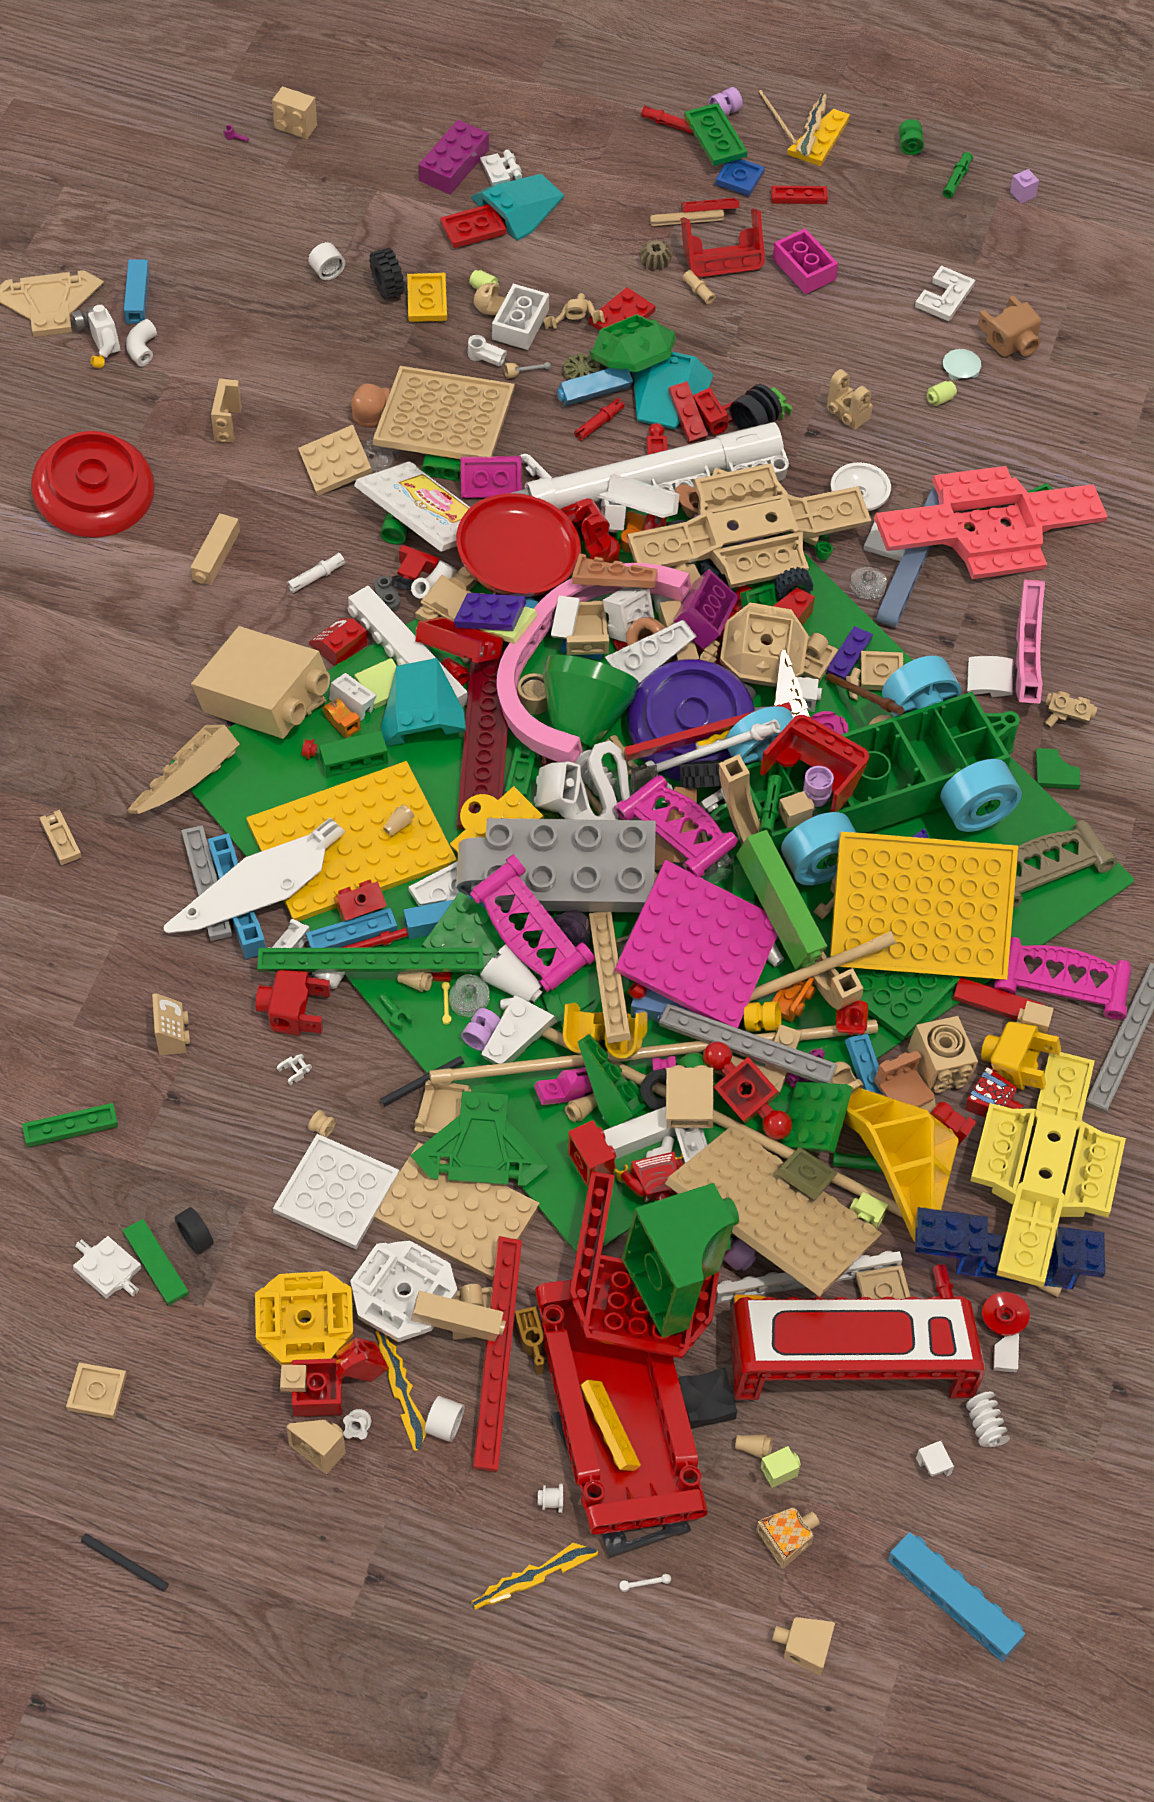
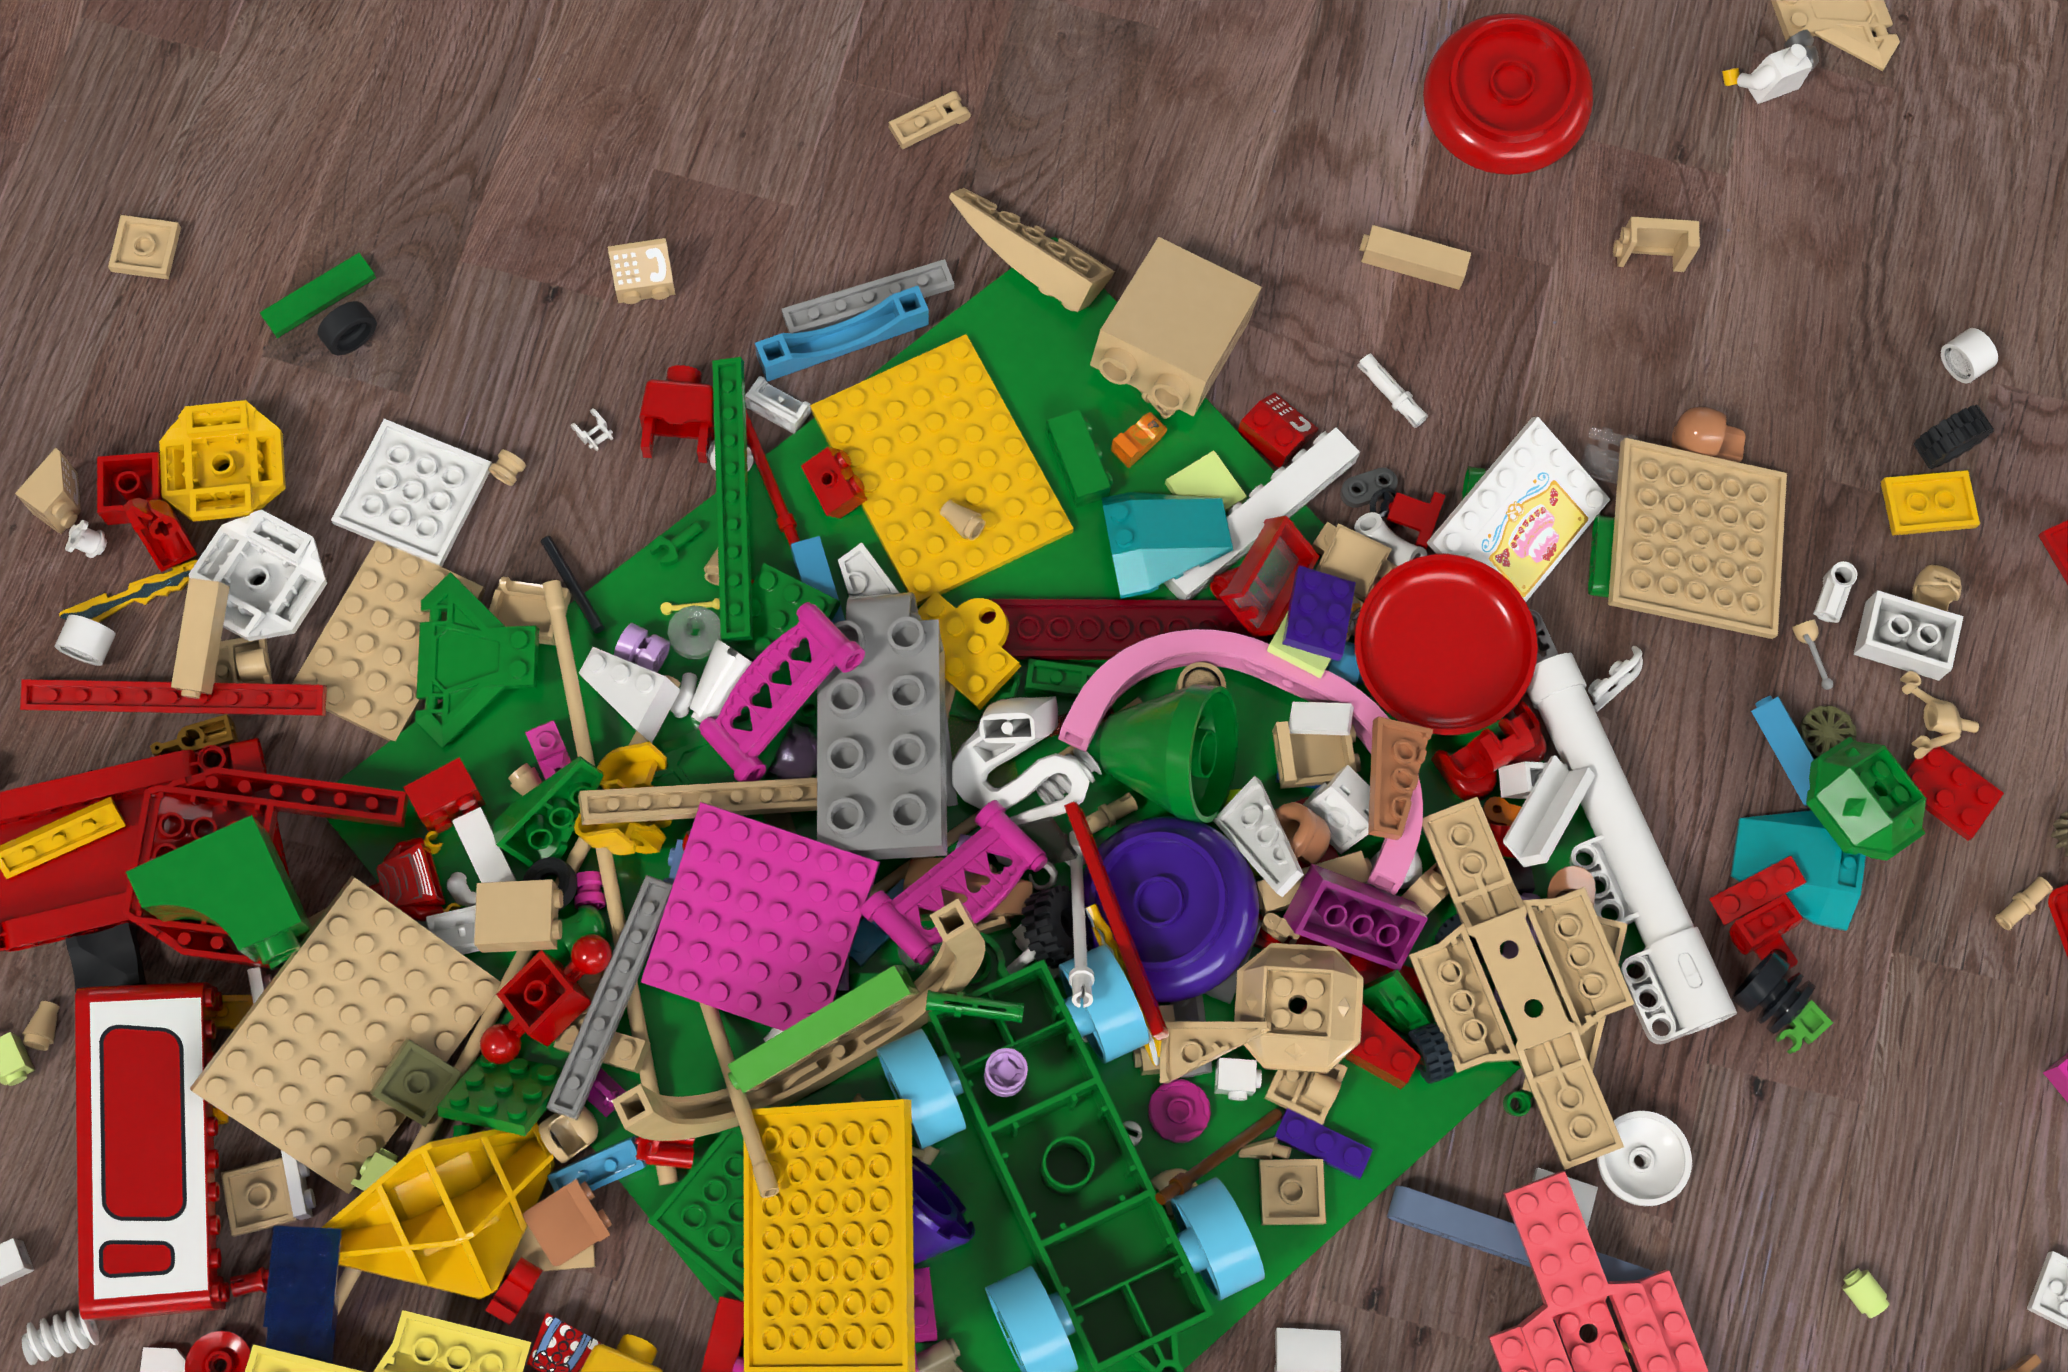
camera: 80 degrees right, 15 degrees up
(69, 1125) = (504, 179): green plate -> none
(107, 1267) = (310, 241): white plate -> none
(136, 291) = (1868, 111): dark azure brick -> none
(136, 342) = (1773, 121): white cylinder -> none
(259, 880) = (862, 357): white wing -> none
(293, 1378) = (128, 453): tan plate -> none
(309, 748) = (1085, 402): red plate -> none
(335, 460) = (1596, 399): tan plate -> none
(352, 930) = (792, 479): dark azure plate -> none
(353, 695) = (1174, 448): white hinge -> none
(480, 277) = (1975, 581): yellowish green brick -> none
(490, 476) = (1588, 609): dark pink tile -> none
(605, 415) = (1729, 762): red pin -> none
(656, 441) = (1691, 848): red plate -> none
(762, 1016) = (668, 1020): yellow wheel -> none
(793, 998) = (699, 1059): orange bracket -> none
(796, 809) = (966, 1043): tan brick -> none
(819, 746) = (1083, 1050): red windscreen -> none
(849, 406) = (1829, 1127): tan brick -> none
(868, 583) = (1455, 1185): clear piece -> none
(945, 1054) = (593, 1279): tan brick -> none
(962, 364) = (1936, 1329): light aqua dish -> none

